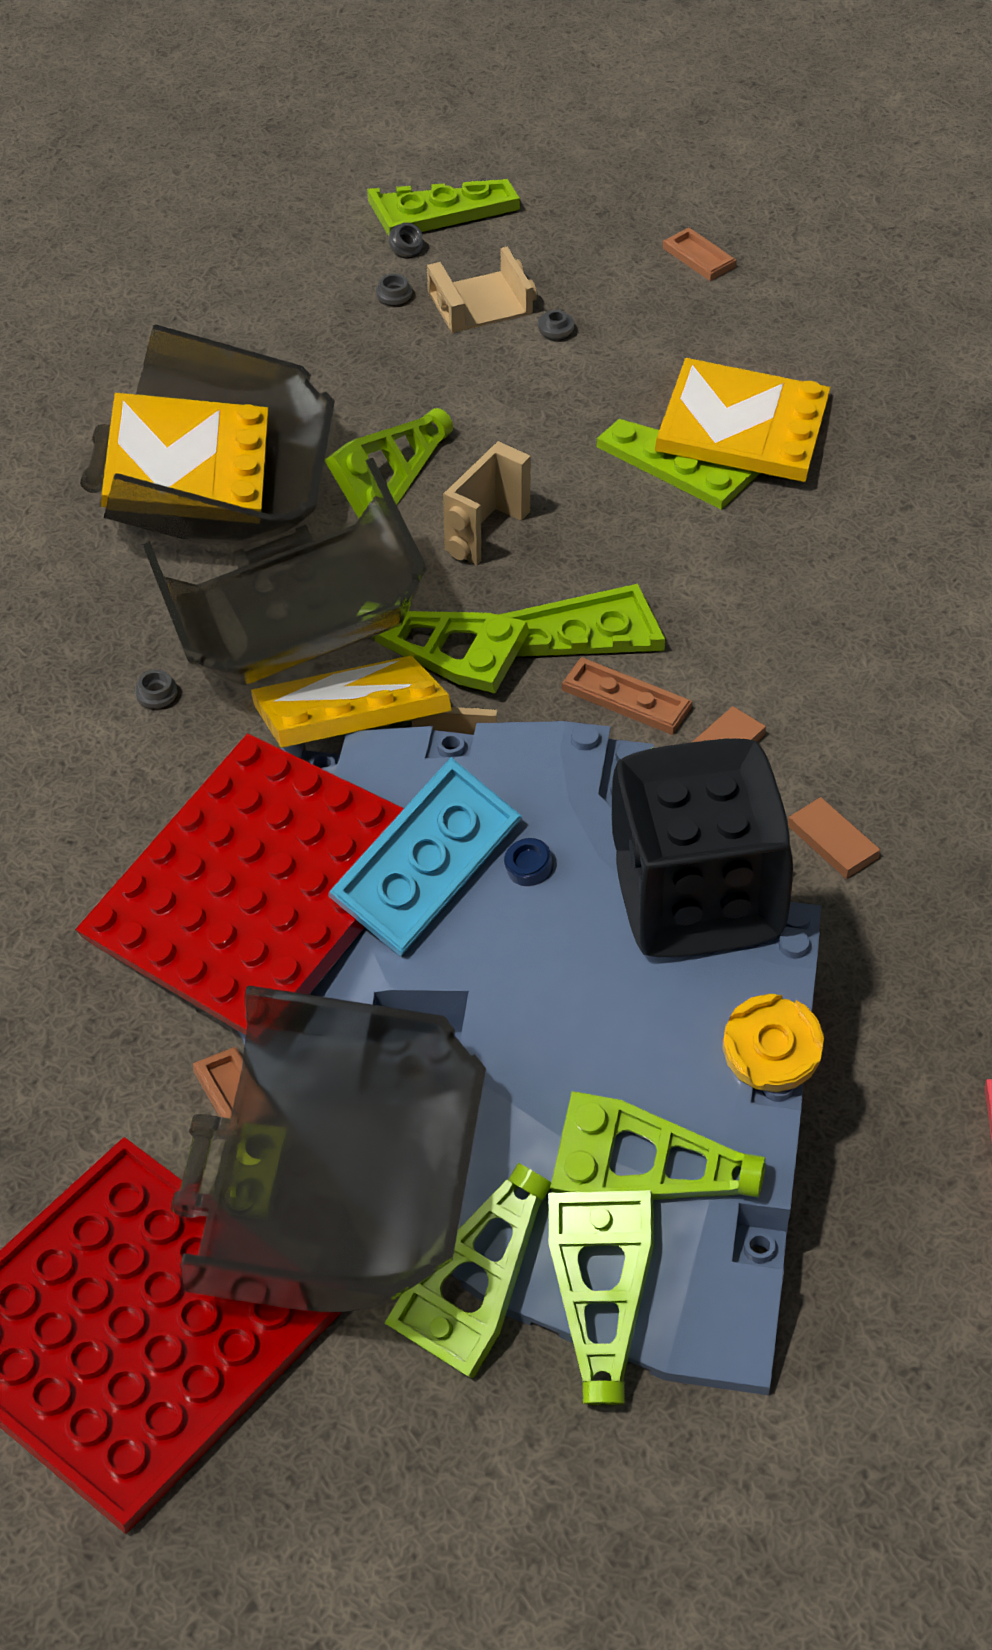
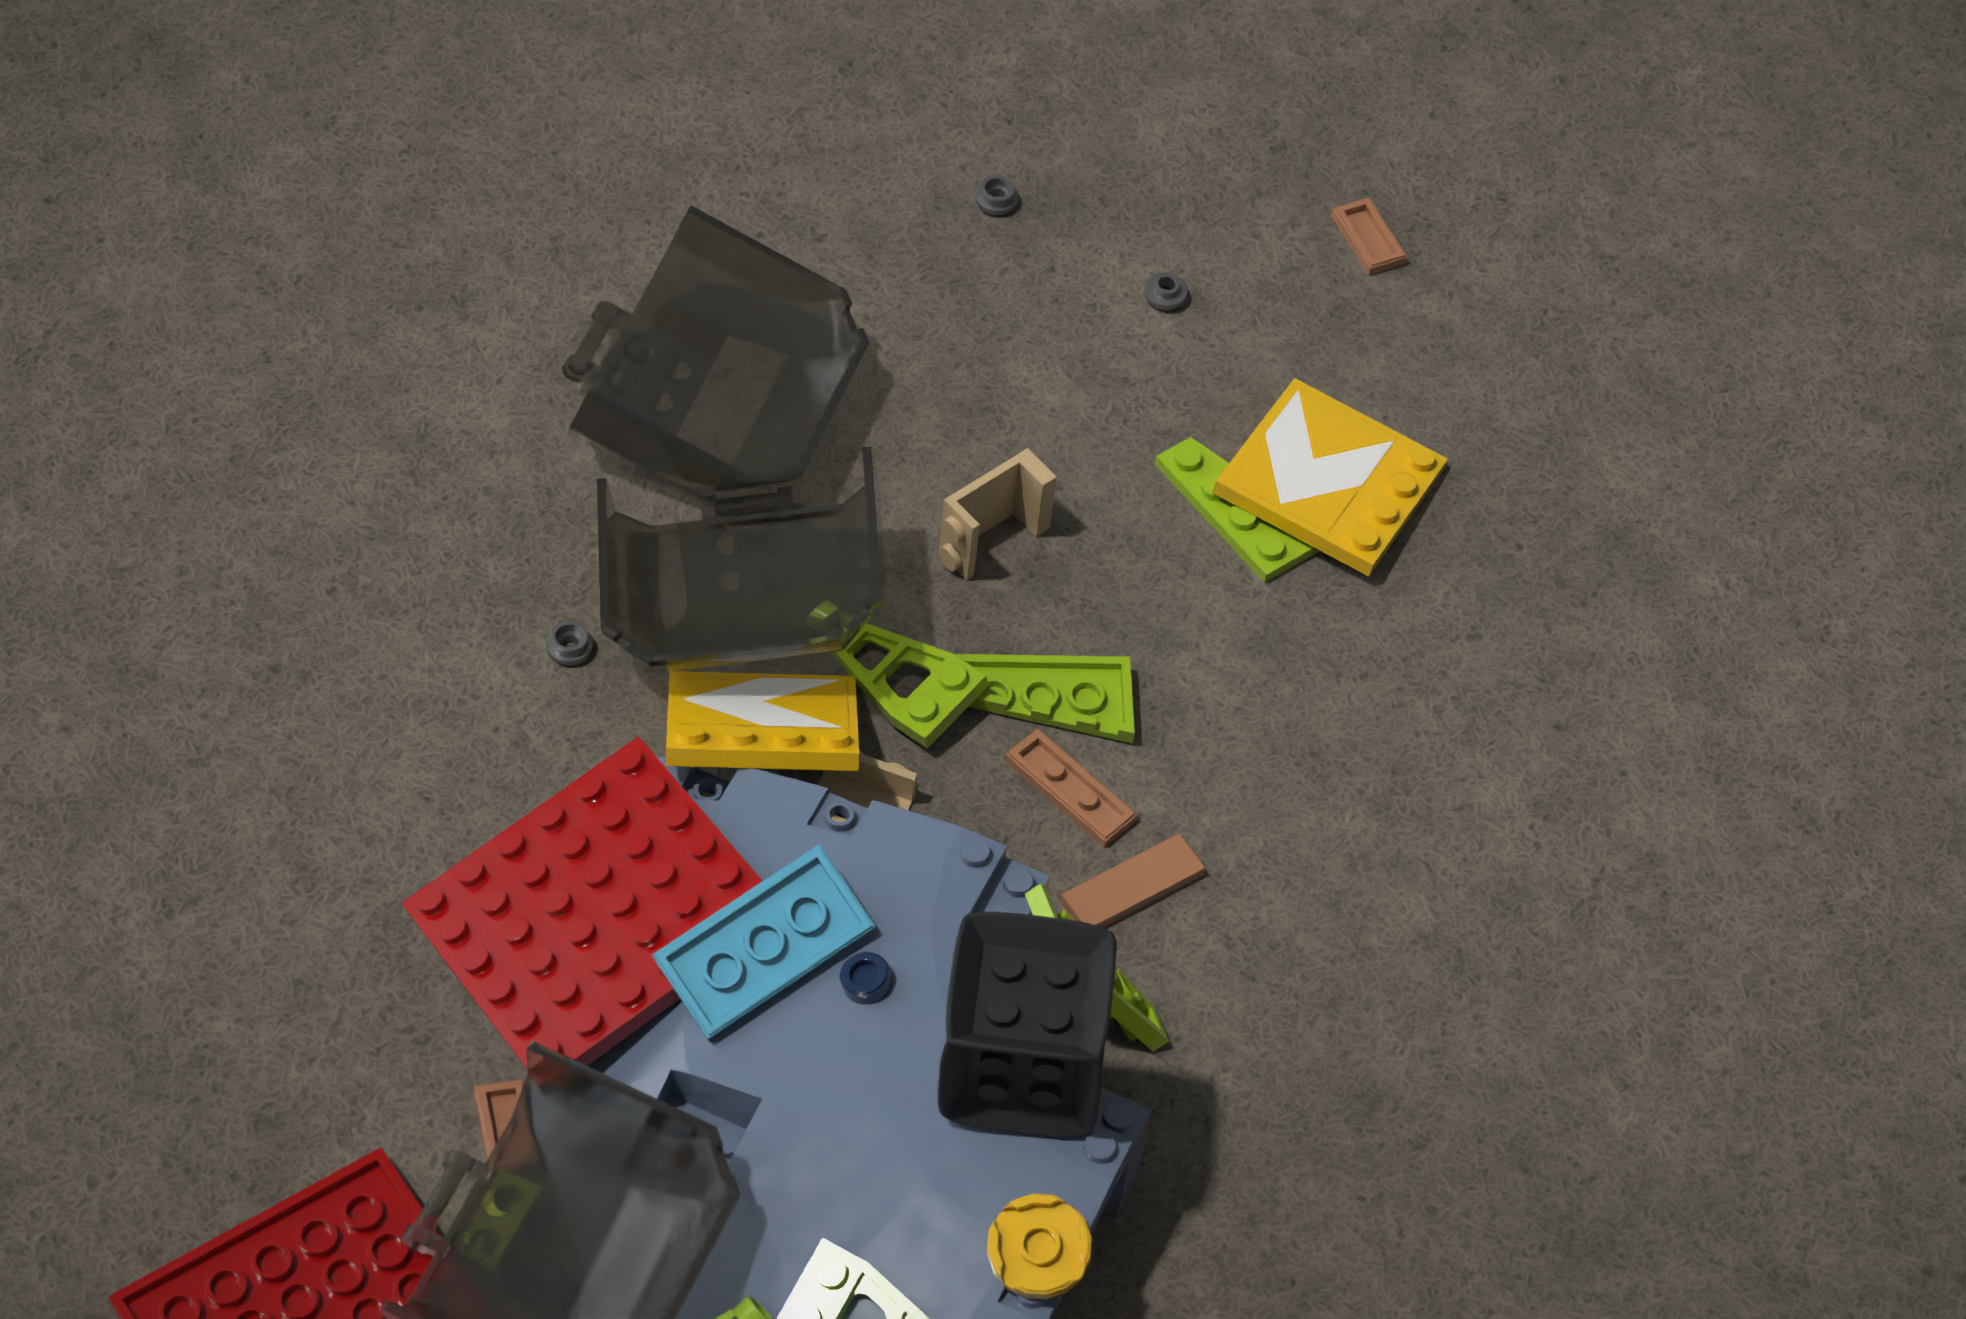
camera: 10 degrees right, 5 degrees up
(189, 447) = (689, 363): yellow plate -> none
(351, 470) = (865, 426): lime plate -> none
(408, 233) = (1042, 126): flat silver plate -> none
(443, 204) = (1074, 93): lime wing -> none
(482, 298) = (1095, 231): tan panel -> none
(833, 837) = (1228, 1018): nougat tile -> none

